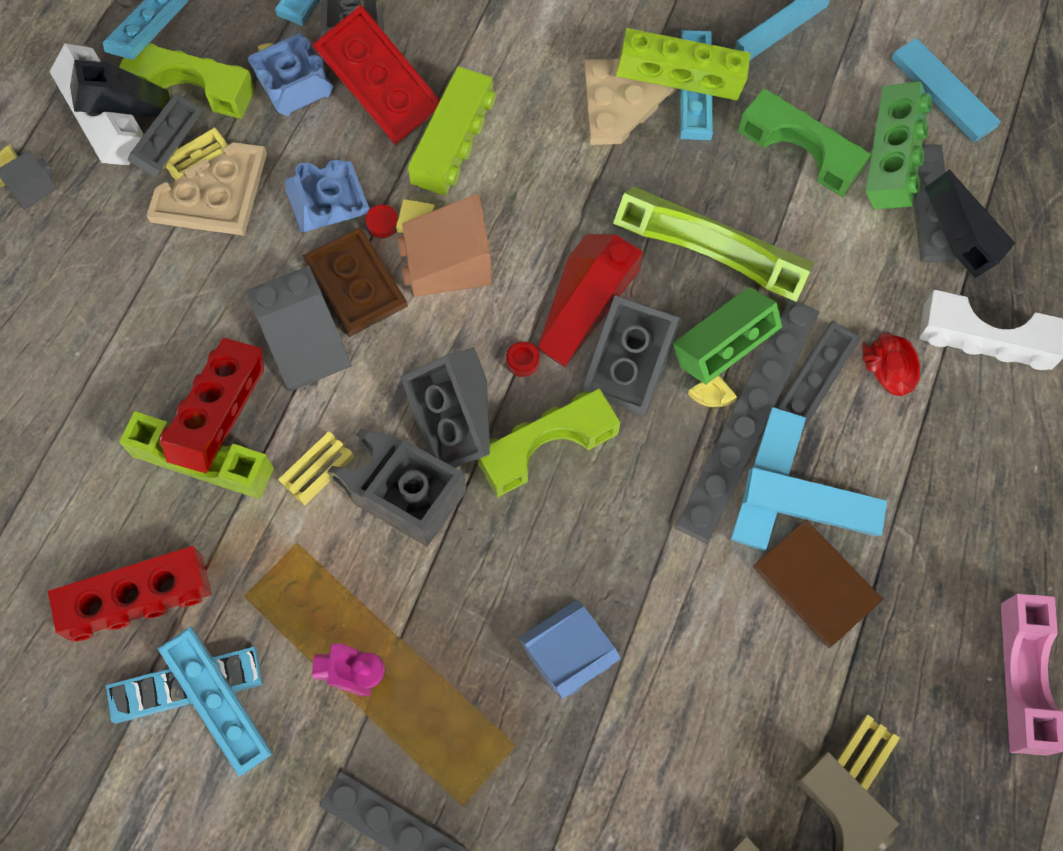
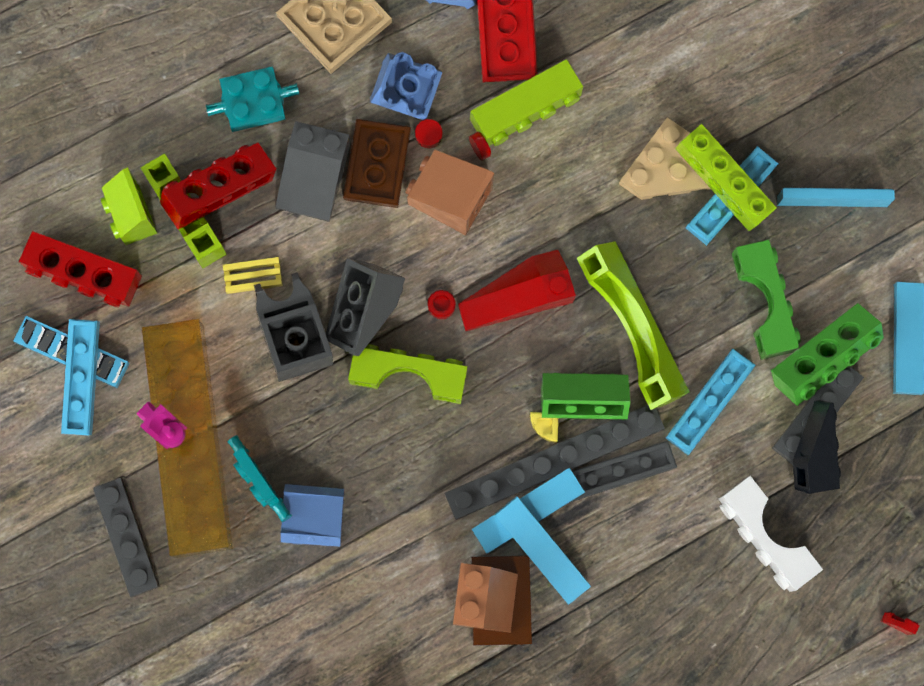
camera: 35 degrees right, 10 degrees up
(135, 494) = (128, 208): none -> lime slope
(184, 309) = (252, 99): none -> teal plate
(412, 210) = (453, 145): light yellow tile -> none
(439, 194) = (480, 146): none -> red tile
(477, 650) = (251, 473): none -> teal plate
(632, 354) = (513, 358): dark grey slope -> none
(802, 589) = (485, 598): none -> nougat slope
(835, 262) = (710, 401): none -> medium azure tile
(893, 363) = (682, 501): red hat -> none

